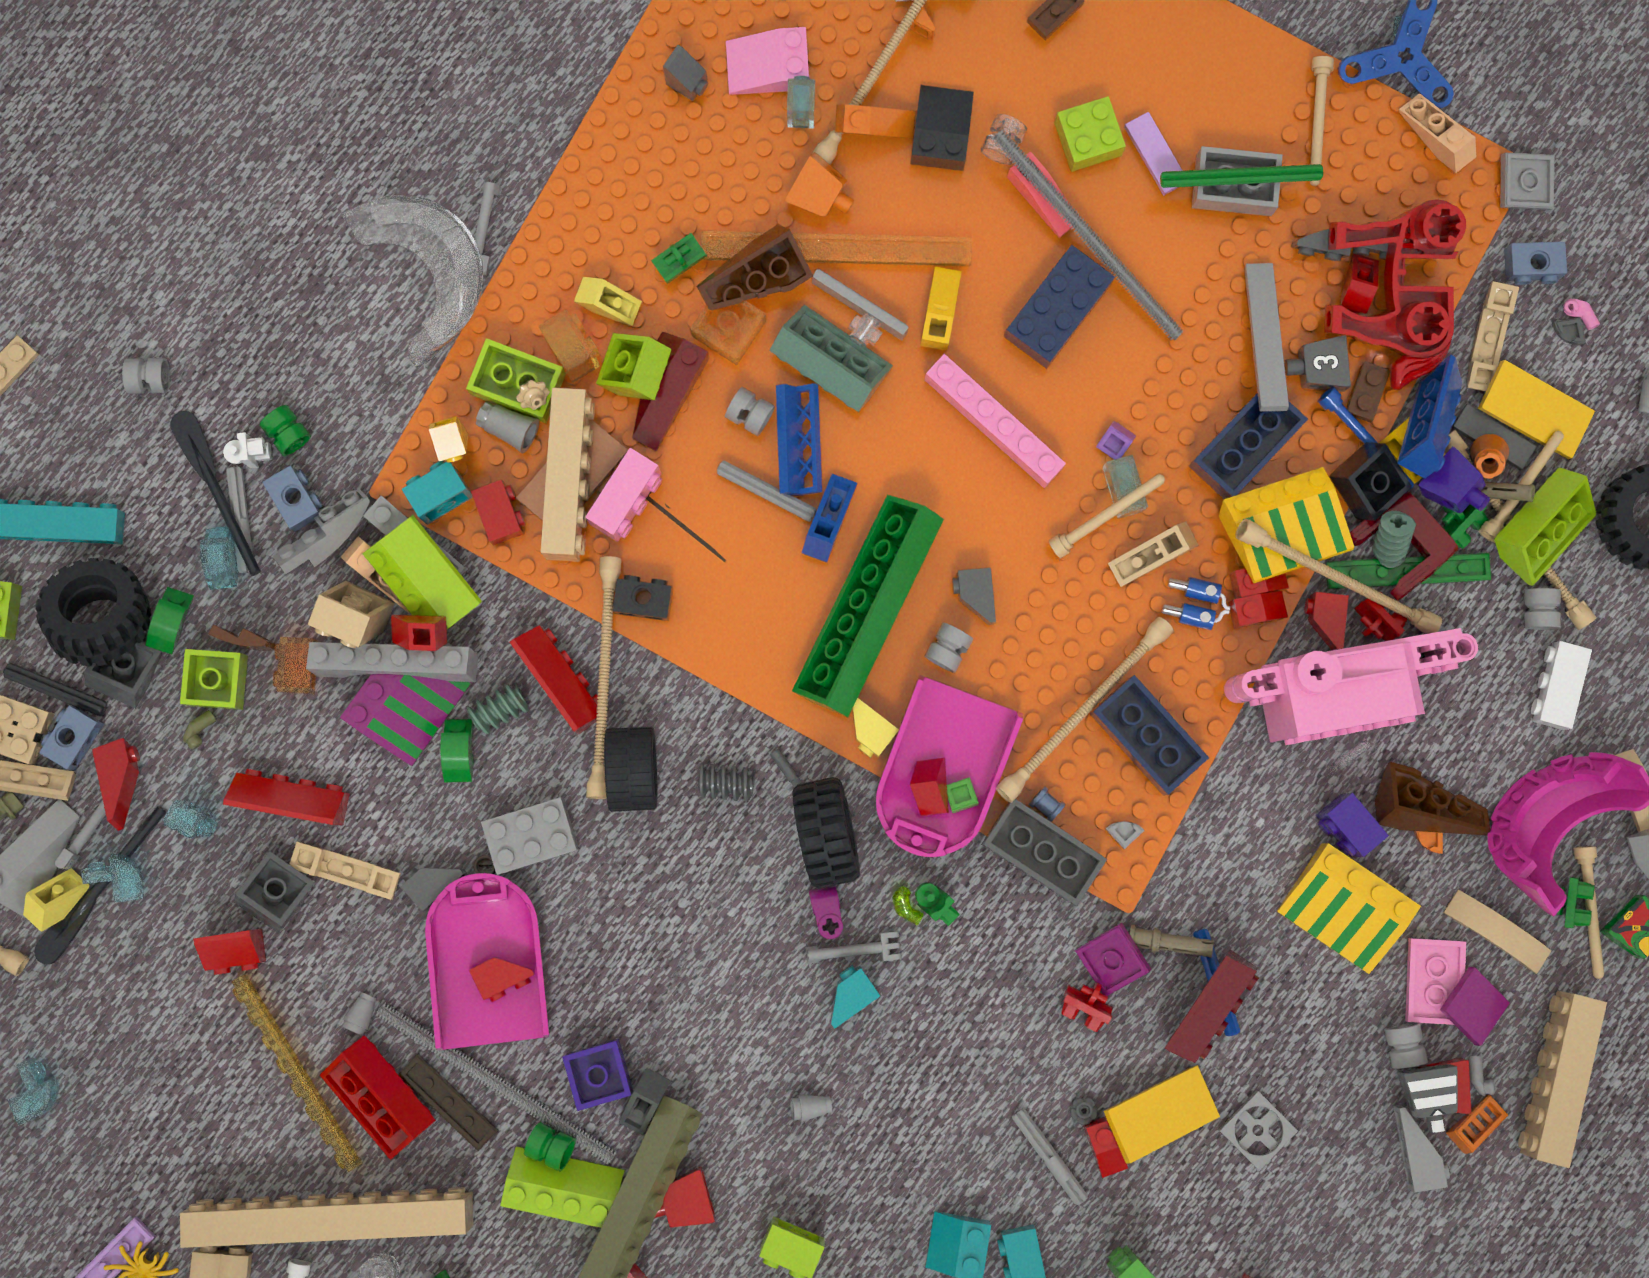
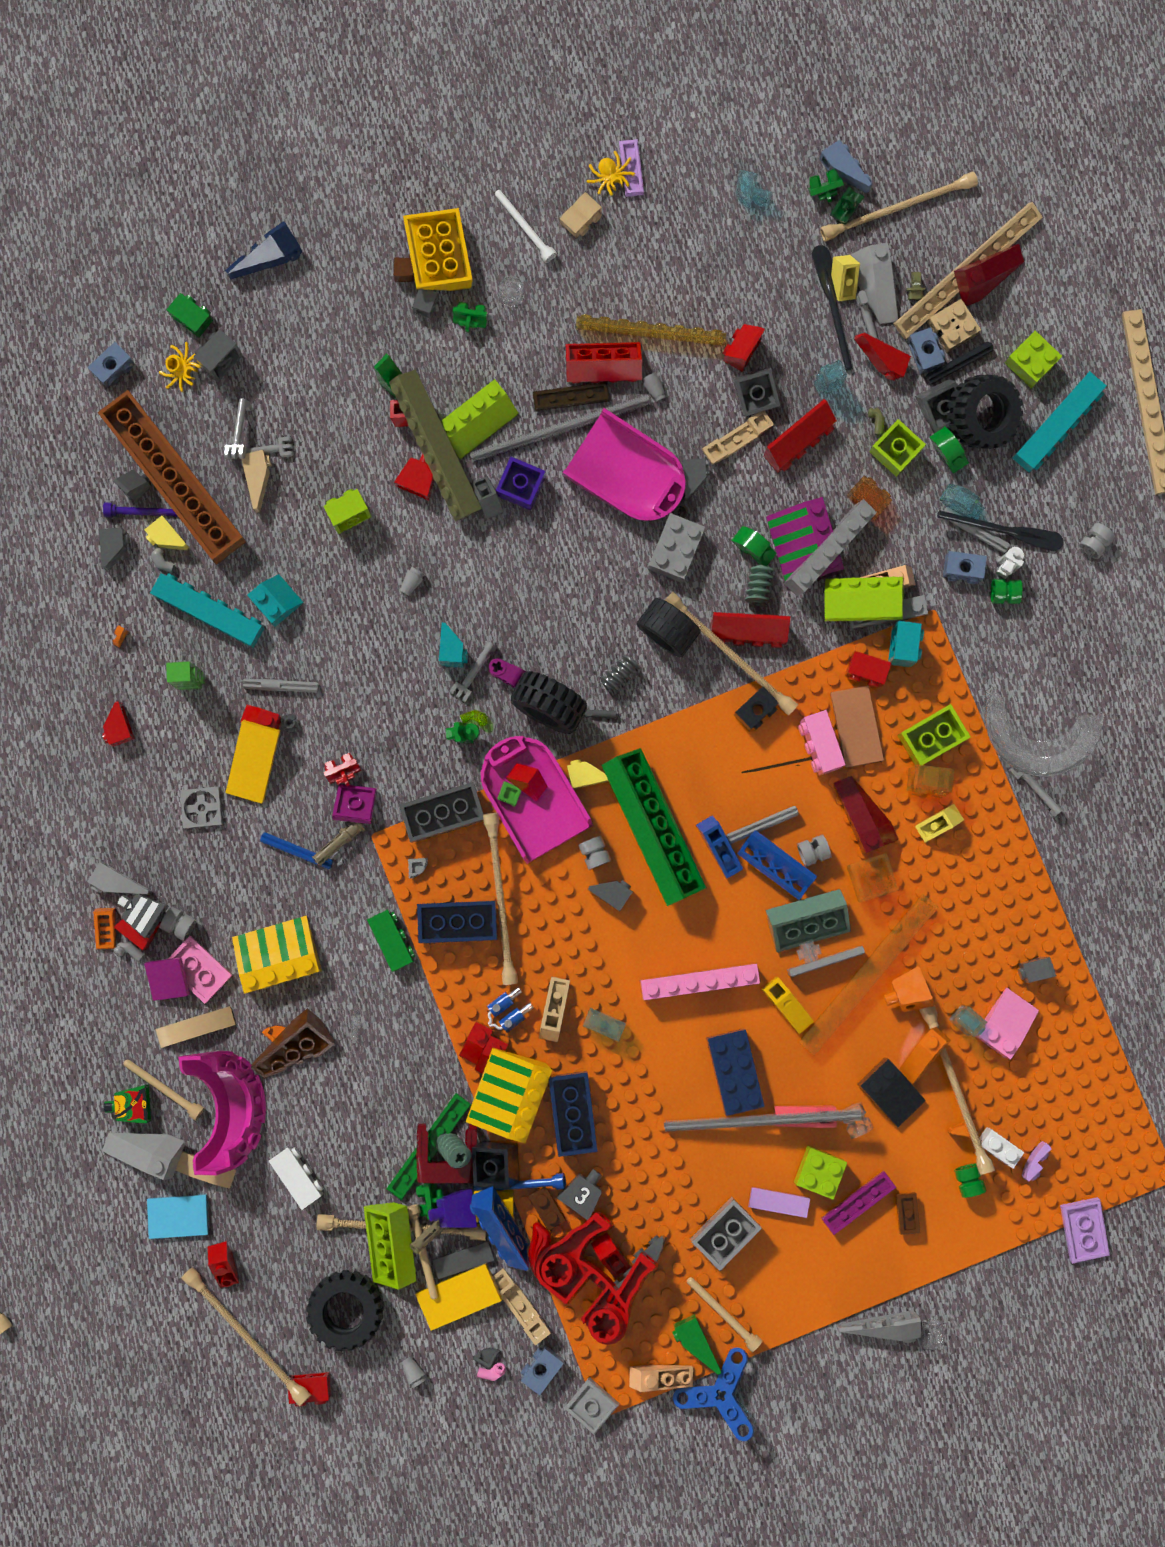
camera: 130 degrees right, 0 degrees up
(124, 874) = (830, 322): clear light blue brick -> none
(246, 639) = (906, 479): reddish brown slope -> none
(326, 1219) = (561, 287): tan brick -> none
(334, 527) = (929, 574): light grey slope -> none
(350, 614) = (874, 545): tan brick -> none
(419, 632) = (834, 572): red slope -> none
(449, 439) = (928, 670): slope -> none
(497, 975) = (616, 472): red slope -> none
(508, 425) = (912, 712): light grey plant -> none
(532, 395) = (917, 736): tan plant -> none
(546, 1145) = (503, 429): green wheel -> none
(566, 474) = (858, 720): tan brick -> none
(633, 366) = (890, 805): lime brick -> none
(679, 258) = (932, 881): green hips -> none
(761, 268) = (889, 921): reddish brown wedge -> none
(1047, 804) = (466, 836): sand blue bush -> none
(1063, 543) = (600, 962): tan piece -> none
(1087, 70) = (858, 1202): none -> magenta plate
(1116, 441) = (634, 1042): medium lavender slope -> none
(1212, 1007) = (285, 833): dark red slope -> none
(1226, 793) = (391, 940): none -> green brick
(1241, 175) = (726, 1235): green axle -> none
(1253, 534) = (516, 1068): tan hose -> none
(1266, 337) = (623, 1173): light grey tile -> none
(1328, 617) = (440, 1078): red slope -> none
(1349, 687) = (392, 1054): bright pink piece -> none
(1351, 825) = (317, 993): dark purple brick -> none
(1373, 126) = (694, 1340): none -> green slope
(1379, 620) = (416, 1104): red hips -> none
(1489, 447) = (454, 1245): orange plant -> none
(1542, 609) = (346, 1202): light grey wheel -> none
(1562, 1078) = (90, 993): tan brick -> none
(1576, 890) = (169, 1075): green hips -> none

